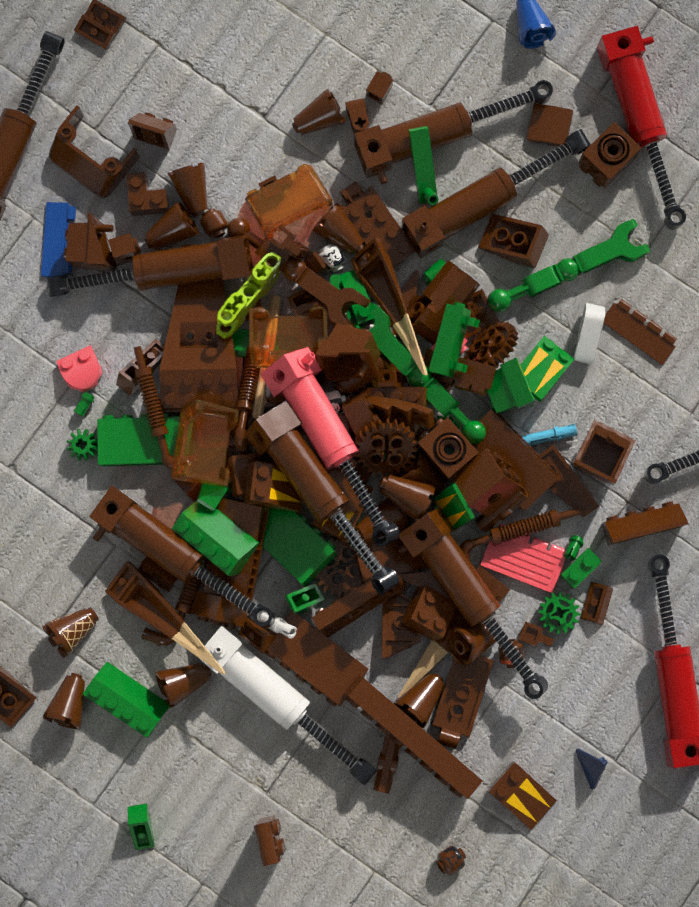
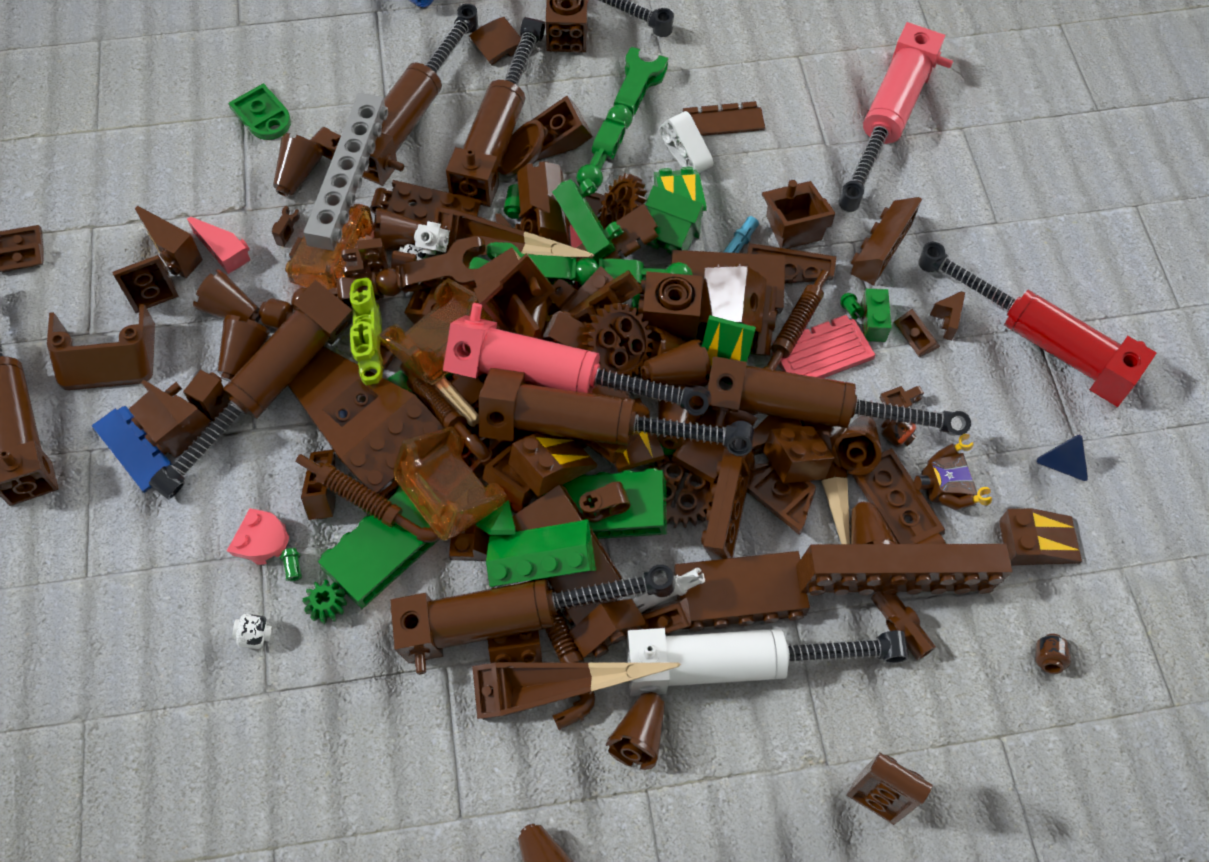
camera: 45 degrees left, 20 degrees down
(29, 426) = (251, 631): none -> white head
(70, 630) = (477, 791): reddish brown cone -> none
(126, 699) = (603, 804): green slope -> none
(143, 200) = (189, 347): reddish brown brick -> none
(188, 112) = (173, 244): none -> reddish brown slope
(224, 142) = (222, 244): none -> coral slope
(271, 159) = (284, 228): none -> reddish brown plate
(284, 541) = (607, 501): none -> reddish brown piece
(304, 599) = (677, 543): green slope -> none
(338, 44) = (260, 111): none -> green tile
(339, 383) = (521, 319): none -> reddish brown slope
(351, 259) = (431, 238): none -> white brick
(379, 86) = (327, 112): reddish brown brick -> none
(389, 123) = (345, 172): none -> light grey brick
(423, 165) = (423, 128): green piece -> none
(475, 239) = (523, 147): none -> reddish brown dish
(505, 712) = (950, 479): none -> reddish brown torso
(556, 604) = (909, 368): green gear -> none
(633, 610) = (950, 311): none -> reddish brown slope

